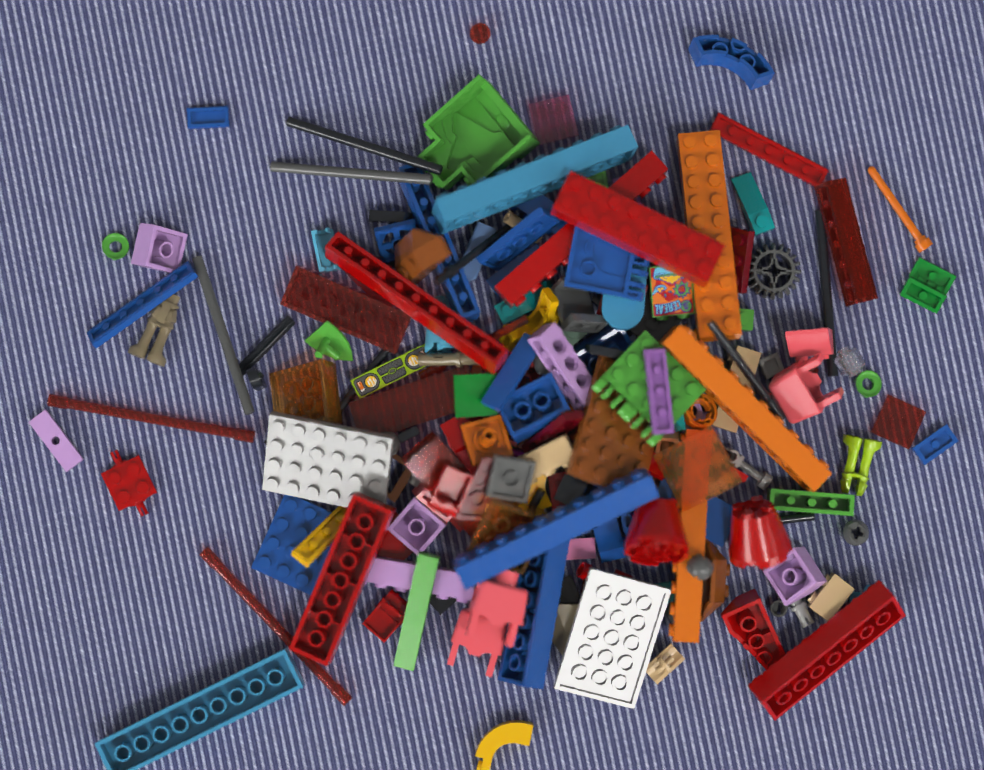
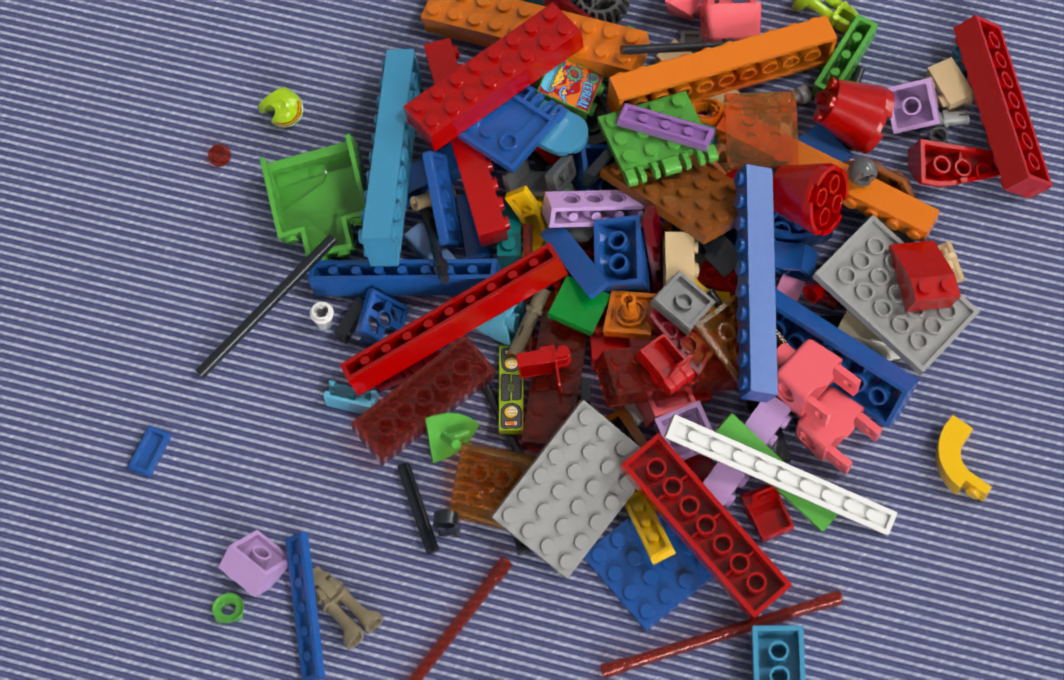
camera: 55 degrees left, 20 degrees down
(223, 335) = (390, 539): dark grey piece -> none
(355, 173) = (286, 330): dark grey piece -> none
(374, 188) = (322, 315): none -> white cone
(411, 616) = (780, 474): none -> white plate
(414, 390) = (543, 362): none -> red piece
(419, 254) = (405, 290): dark orange wedge -> none
(546, 65) = (287, 107): none -> lime helmet
(553, 119) = (341, 120): clear pink plate -> none
(637, 653) = (924, 276): none -> red slope
(858, 540) = (894, 30): dark grey piece -> none

